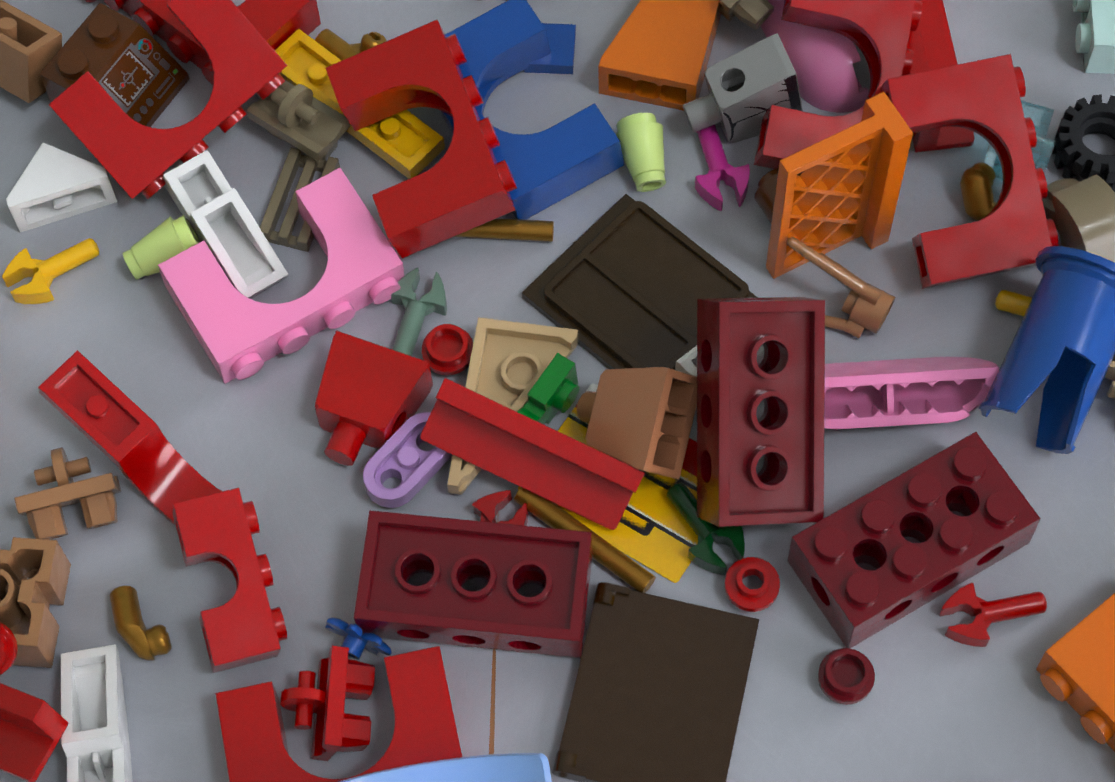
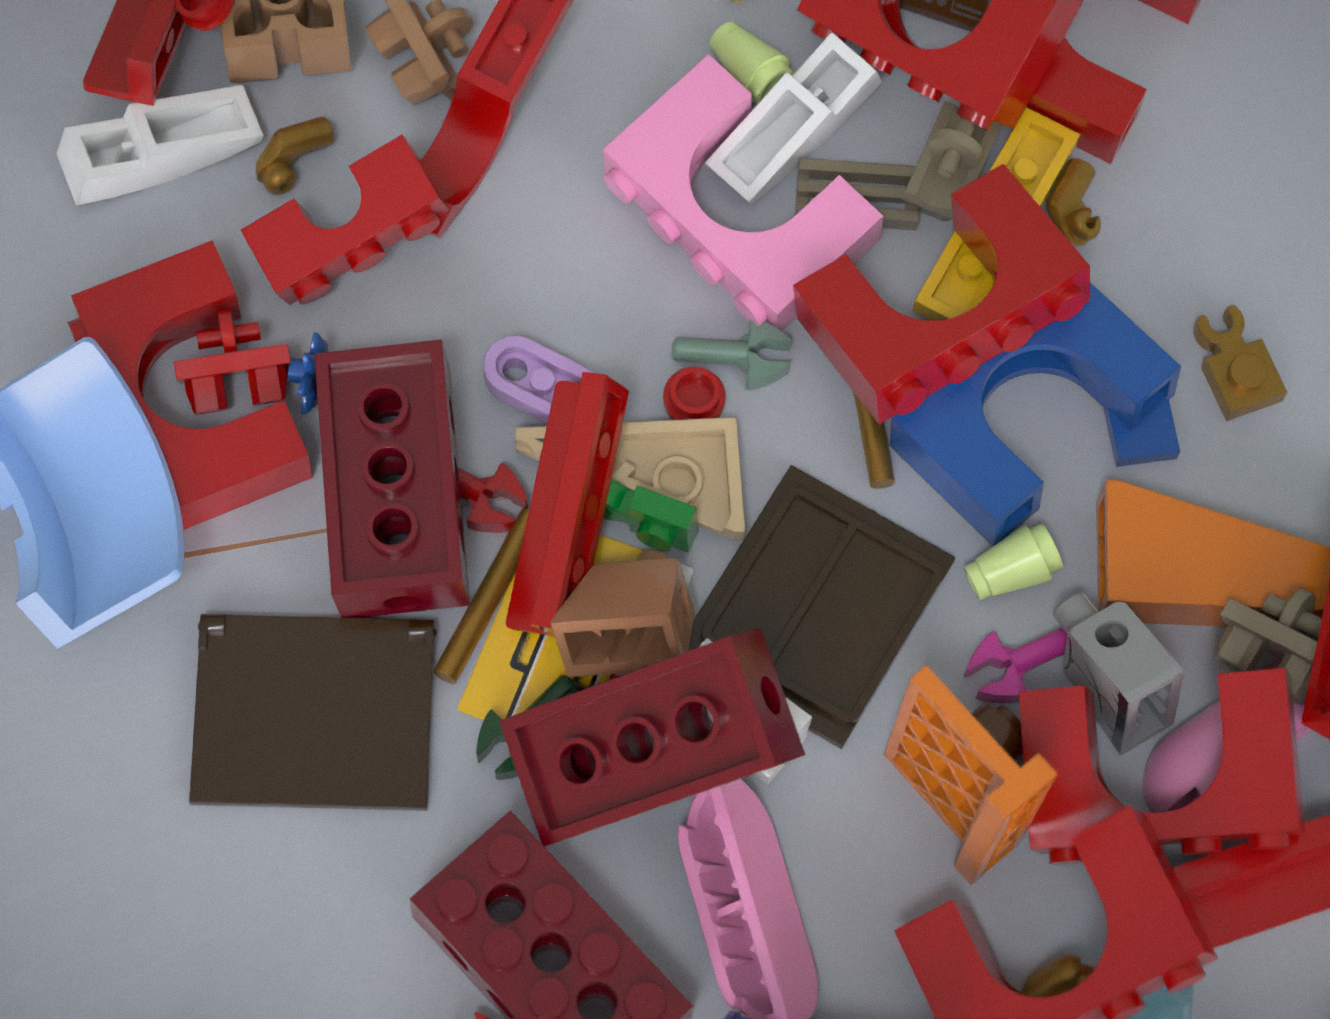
camera: 70 degrees right, 5 degrees up
(367, 395) = (609, 318): red torso -> none
(752, 599) = (465, 809): red plate -> none
(846, 676) = (372, 915): dark red plate -> none
(865, 303) = (860, 864): medium nougat plant -> none

